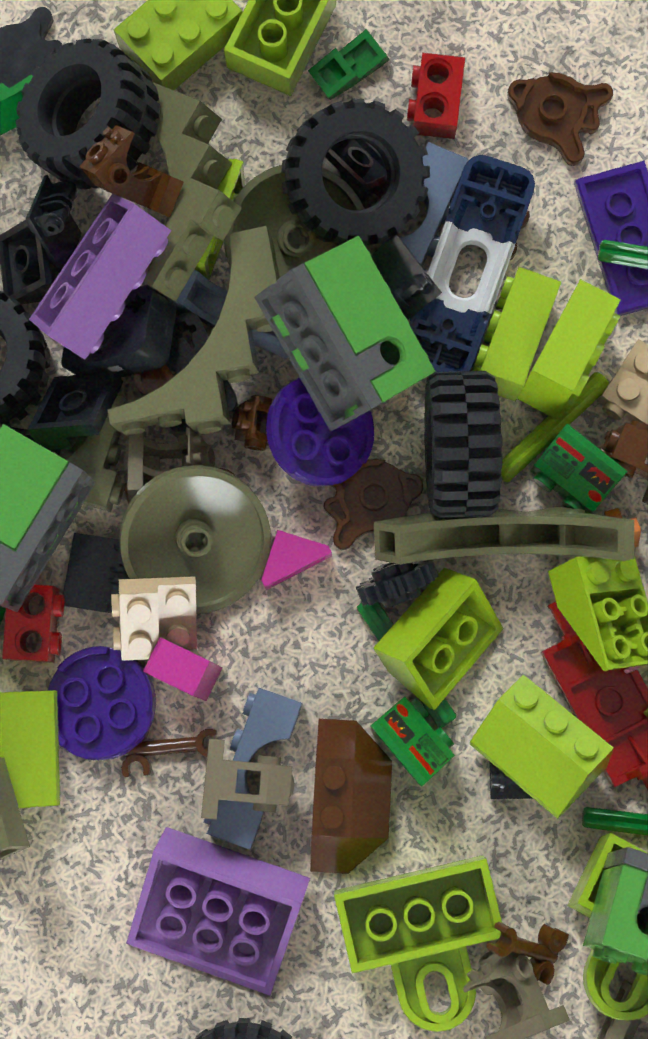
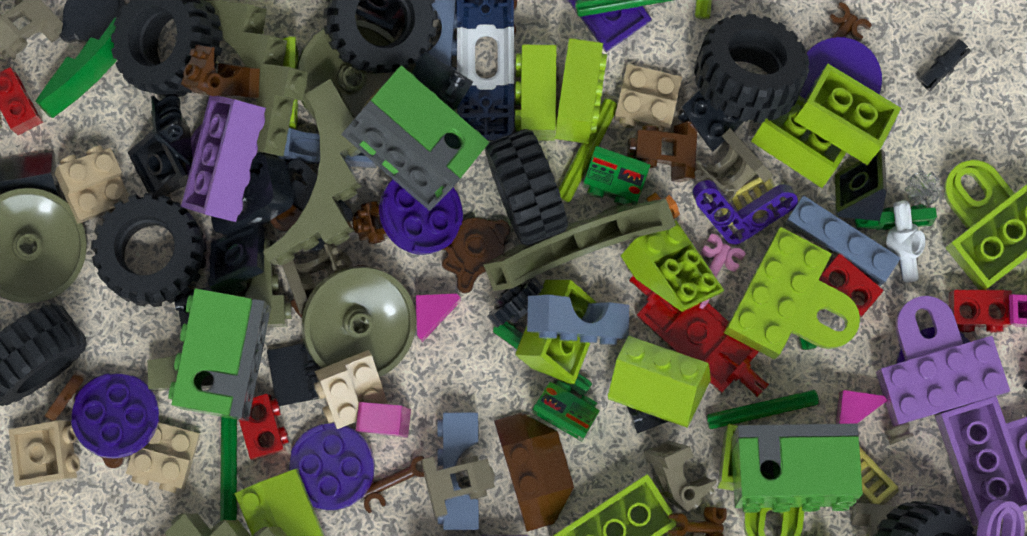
camera: 25 degrees left, 0 degrees up
(442, 619) = (555, 316): none -> sand blue arch
(517, 853) = (668, 465): none -> dark tan tile

